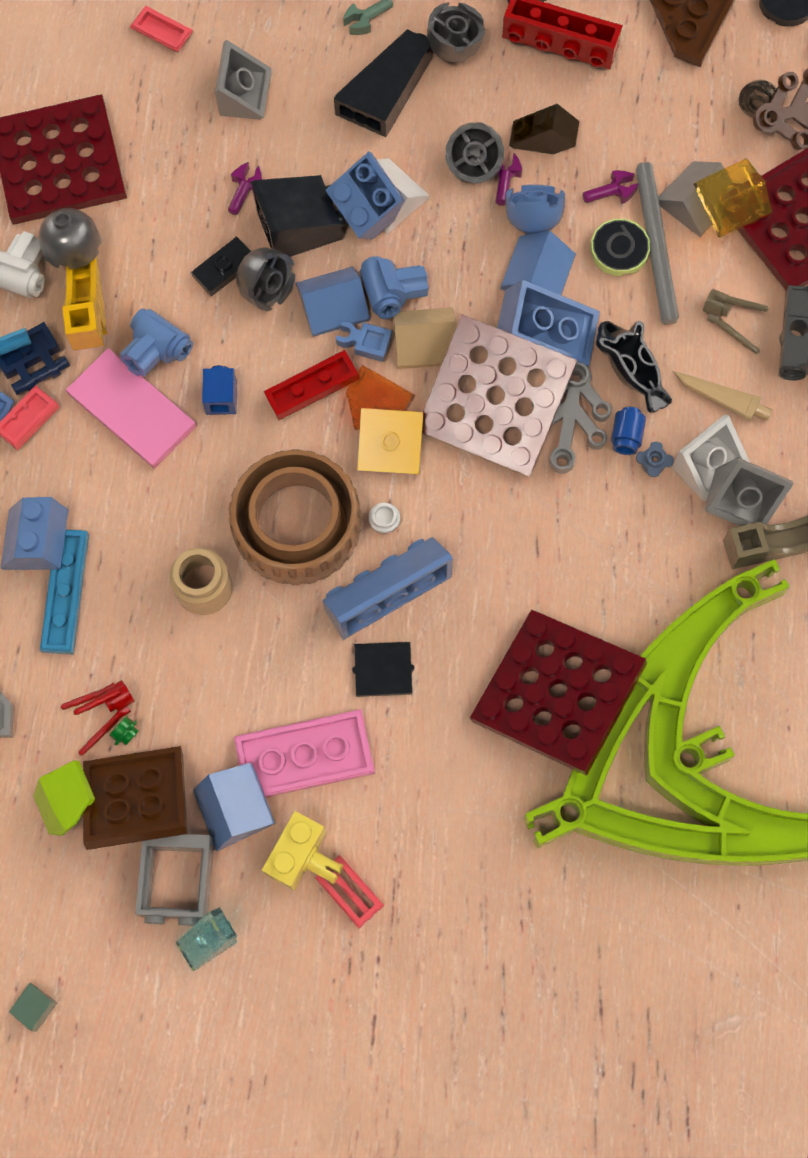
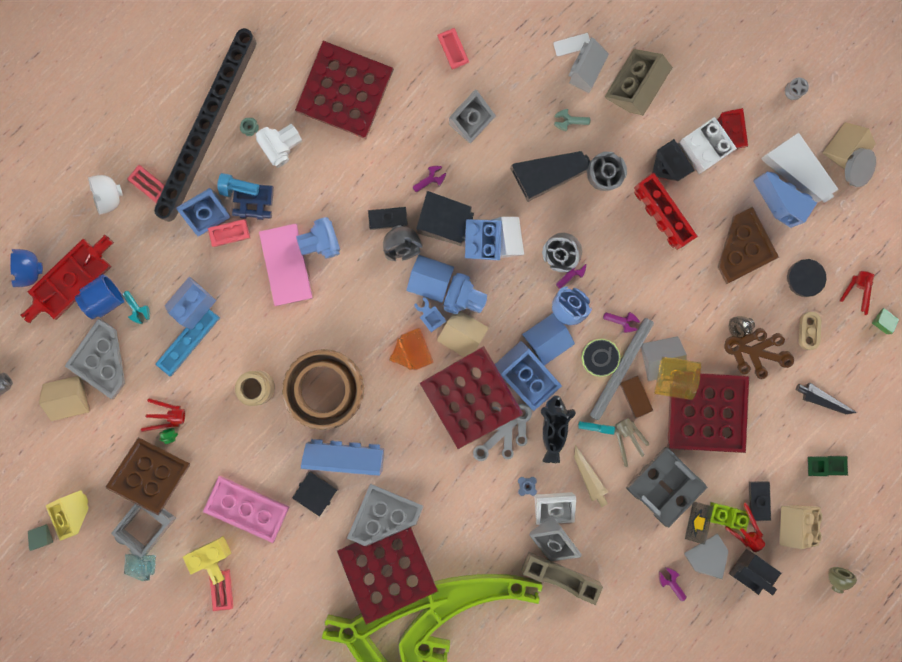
camera: 30 degrees right, 15 degrees up
(51, 939) = (68, 514): none -> light yellow slope
(63, 797) = (115, 453): lime slope -> none
(69, 238) = (314, 150): flat silver cylinder -> none
(84, 307) = (303, 184): yellow arch -> none
(219, 391) = (335, 289): blue brick -> none
(233, 805) = (194, 512): medium blue slope -> none
(311, 385) = (384, 320): red plate -> none
(384, 518) = (370, 417): white plate -> none
(390, 441) = (401, 380): yellow plate -> none
(497, 623) = (382, 516): none -> light grey plate
(545, 131) = (611, 263): dark brown slope -> none
(628, 431) = (525, 462): blue brick -> none
(695, 321) = (597, 427): none -> teal bar
(701, 262) = (636, 396): none -> reddish brown tile

